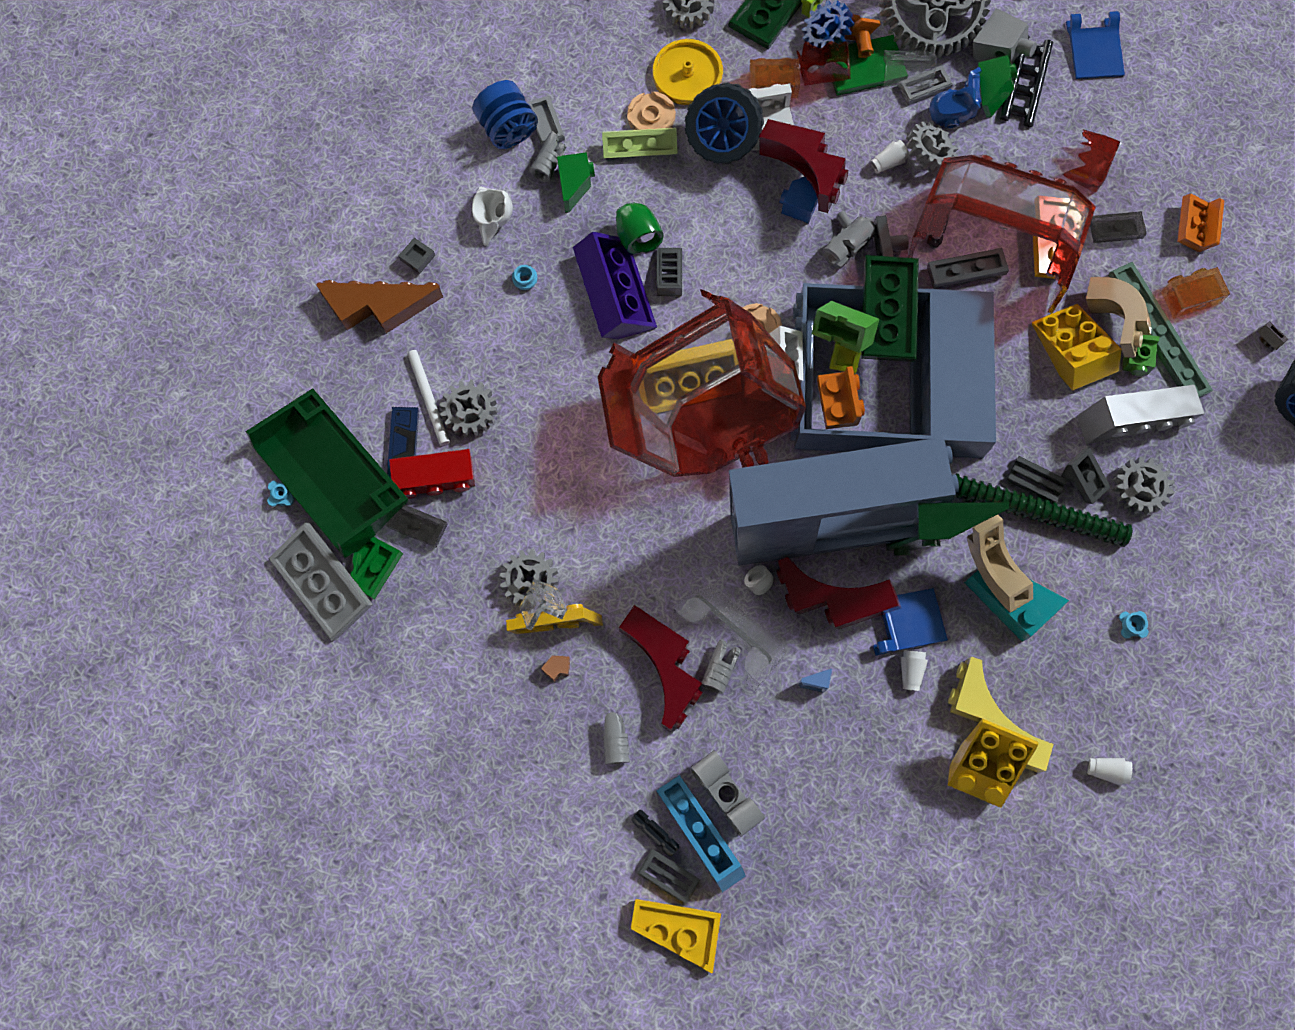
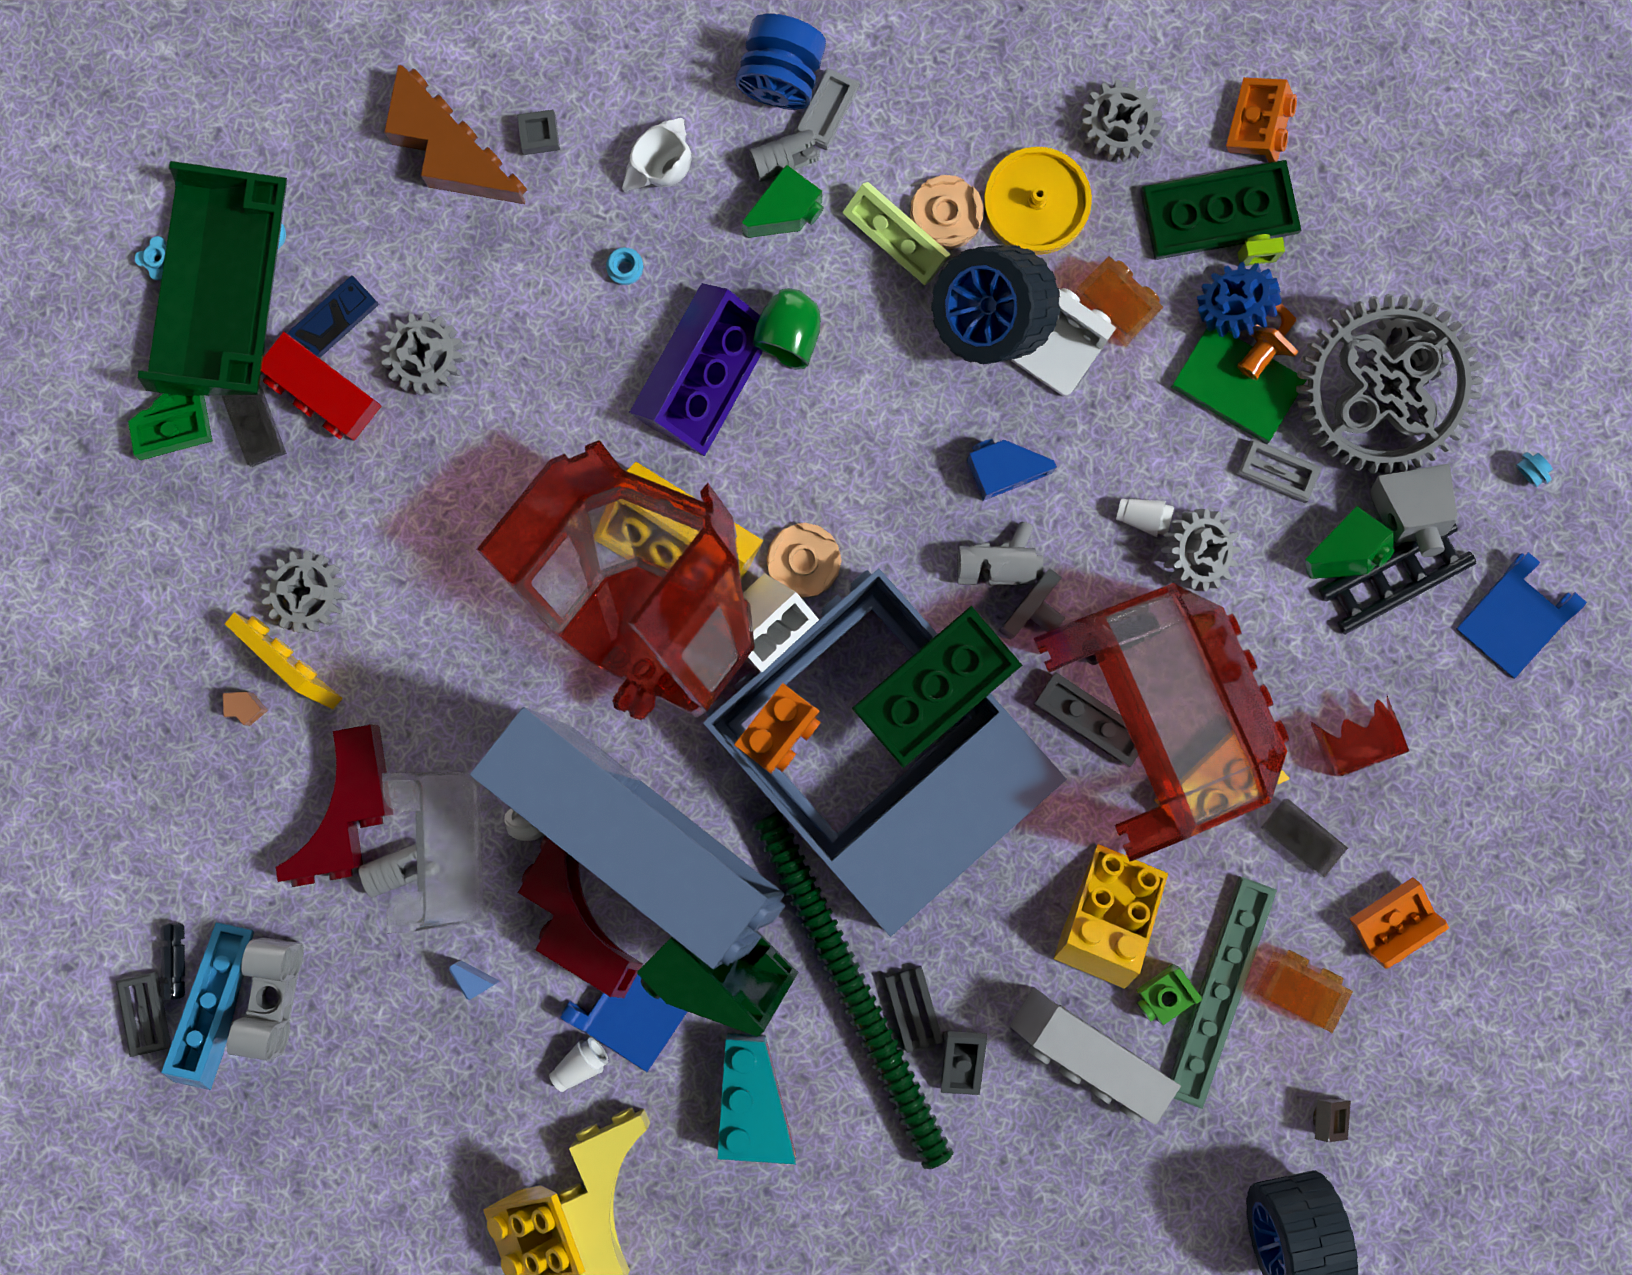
camera: 45 degrees right, 10 degrees up
(320, 581) = (105, 389): light grey tile -> none
(428, 397) = (399, 299): white bar -> none
(541, 598) = (275, 634): clear panel -> none
(615, 740) = (224, 835): light grey hinge -> none
(669, 289) = (750, 419): dark grey slope -> none
(680, 929) = (101, 1072): yellow wing -> none
(808, 154) = (1050, 425): dark red arch -> none
(829, 70) = (1183, 318): clear red piece -> none
(843, 358) = (830, 692): lime plate -> none
(845, 325) = (858, 661): bright green brick -> none
(909, 68) = (1276, 436): clear panel -> none
(957, 106) = (1273, 530): blue head -> none
(997, 566) = (747, 1074): tan arch -> none
(1122, 299) = (1196, 957): tan arch -> none
(1139, 619) = (858, 1250): medium azure plate -> none
(1145, 498) = (1017, 1113): light grey gear -> none

